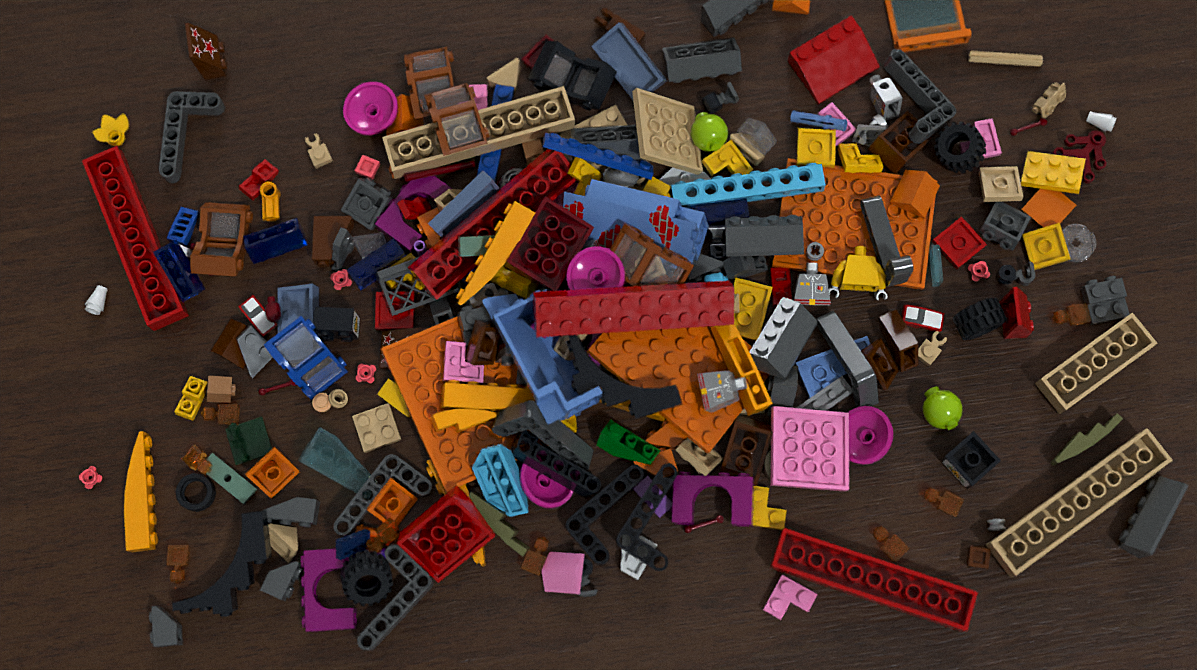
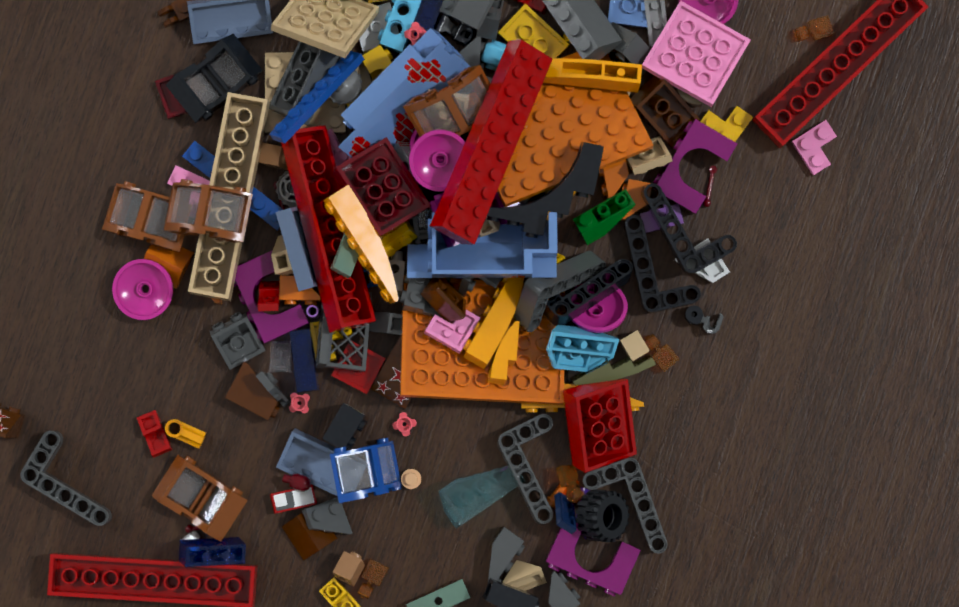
camera: 65 degrees left, 10 degrees up
(111, 128) = (21, 553): yellow plate -> none
(185, 239) = (179, 534): blue slope -> none
(248, 440) = (411, 564): clear green hinge -> none
(262, 391) = (370, 530): dark red hinge -> none
(272, 472) = (456, 556): orange slope -> none
(275, 240) = (229, 446): clear blue brick -> none
(319, 153) = (158, 362): tan plate -> none
(338, 393) = (415, 456): tan plate -> none
(367, 167) = (199, 322): coral plate -> none
(376, 428) = (462, 439): tan plate -> none
(391, 394) = (440, 408): yellow slope -> none
(392, 502) = (543, 459): orange slope -> none
(439, 170) = (243, 257): dark red bar -> none
(506, 76) = (179, 142): tan slope -> none
(530, 529) = (634, 346): none -> tan panel
(563, 572) = (688, 335): bright pink slope -> none
(583, 172) = (330, 117): yellow plate -> none
(698, 204) = (415, 27): none -> coral plate
(720, 389) = (603, 104): light grey torso -> none

